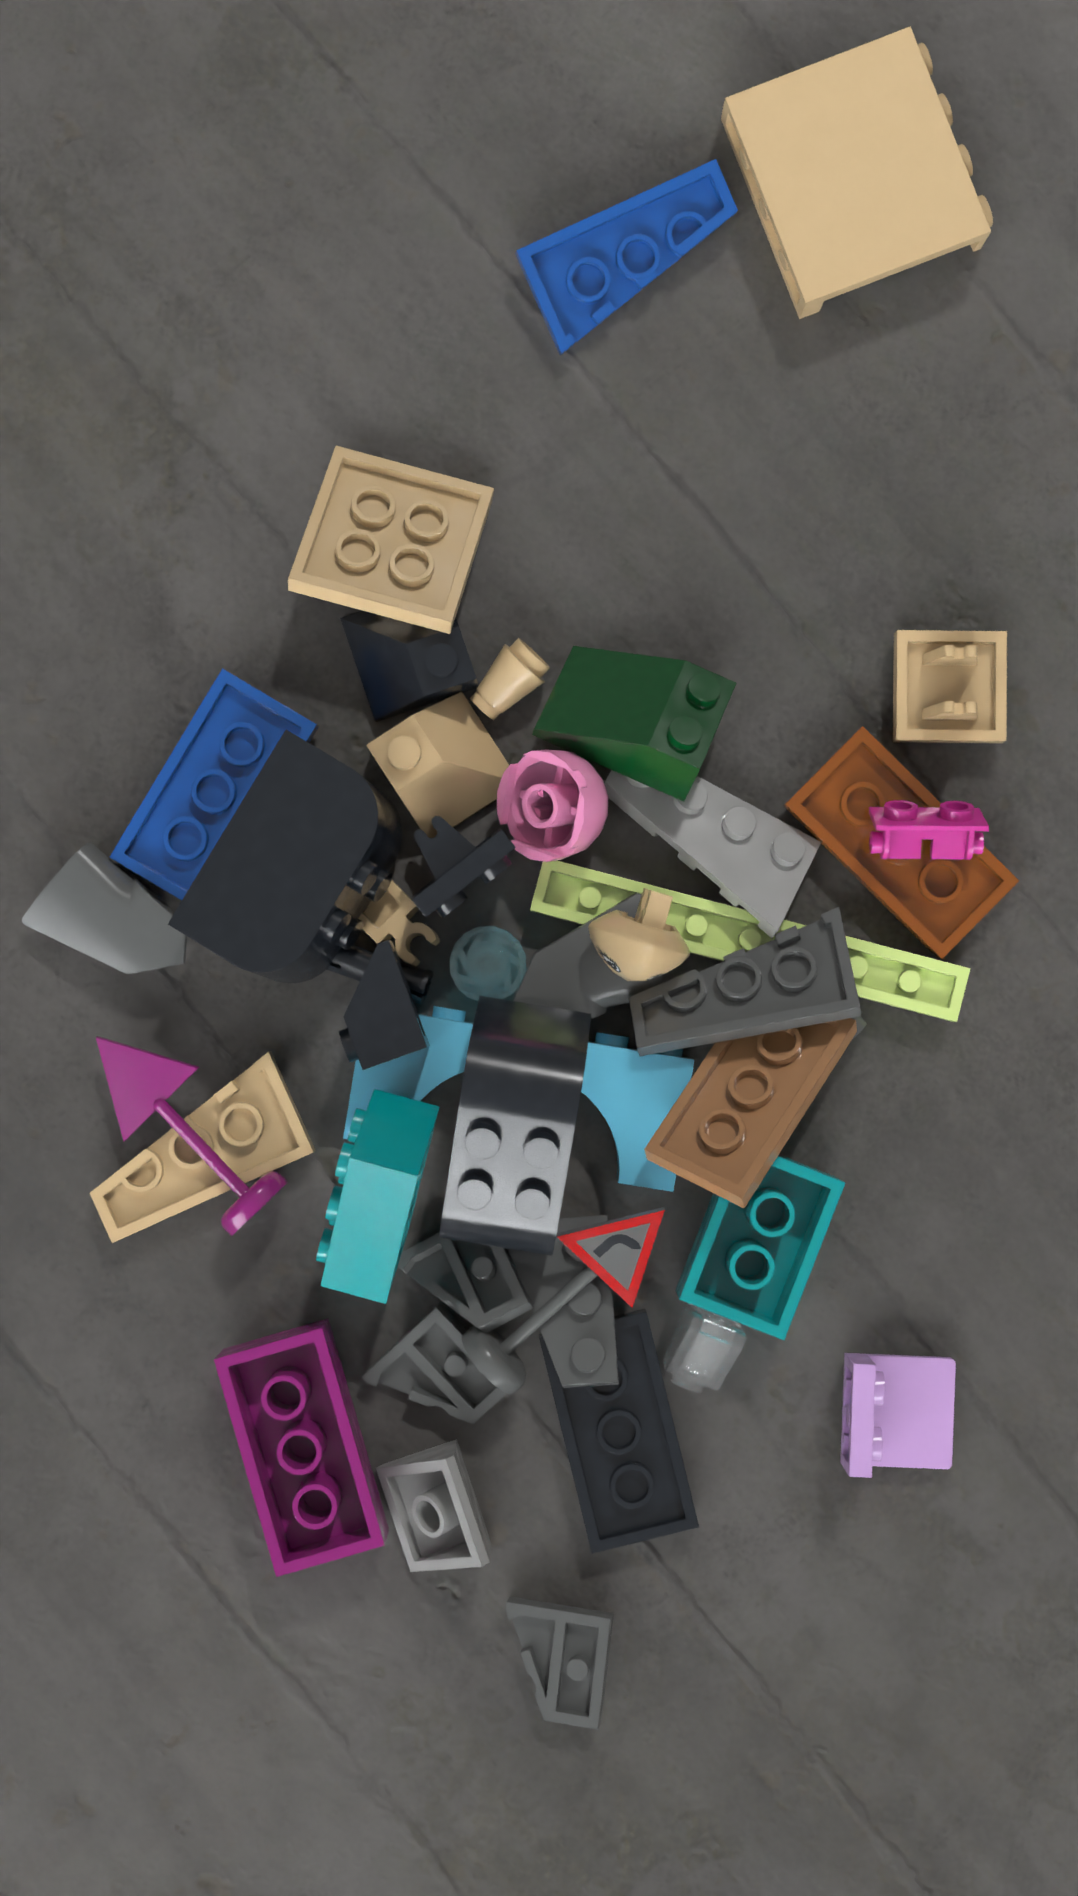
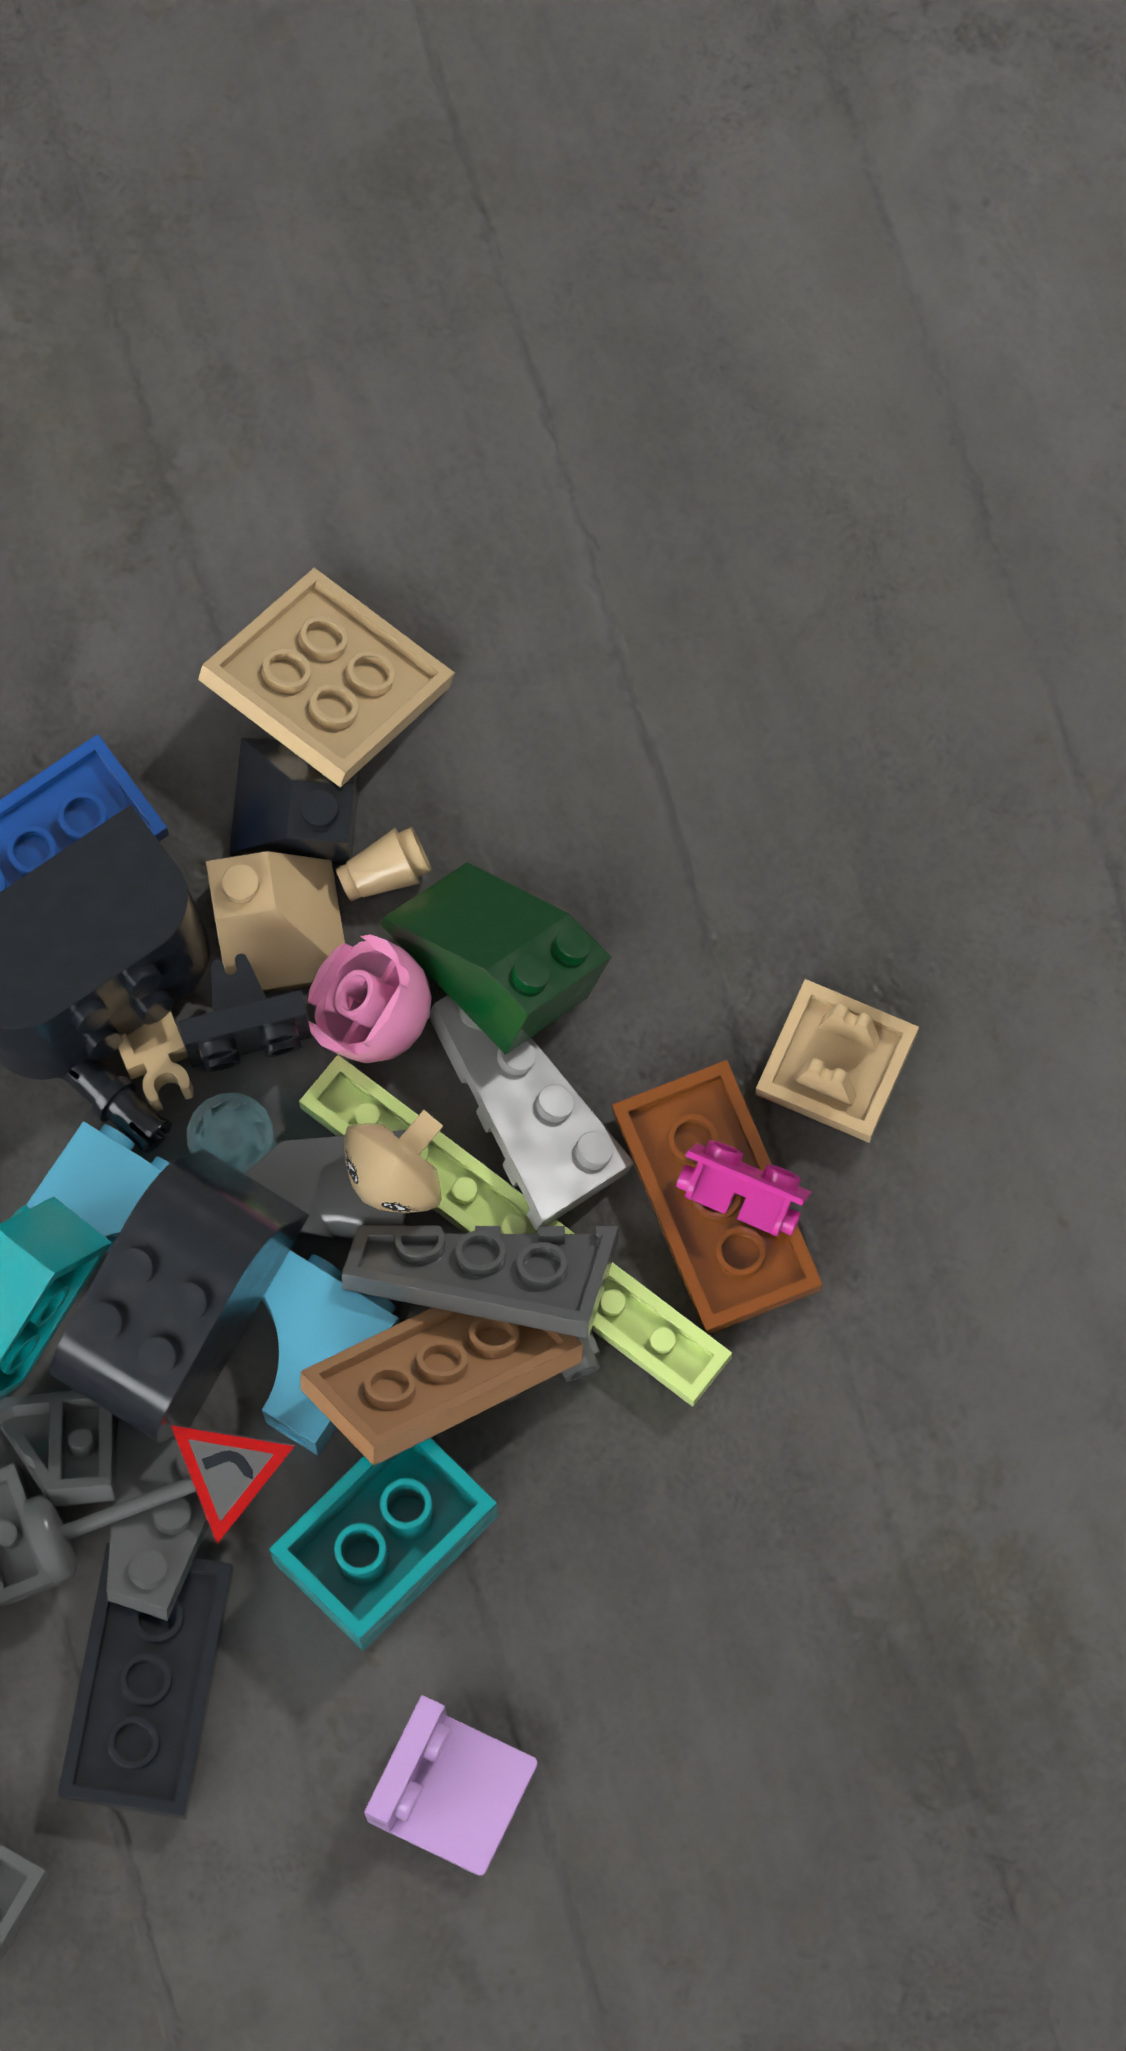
camera: 25 degrees right, 15 degrees down
(382, 1013) = (97, 1128): black slope -> none
(614, 254) = (681, 499): blue wing -> none
(703, 1349) = (272, 1623): clear slope -> none
(855, 169) = (961, 513): tan panel -> none

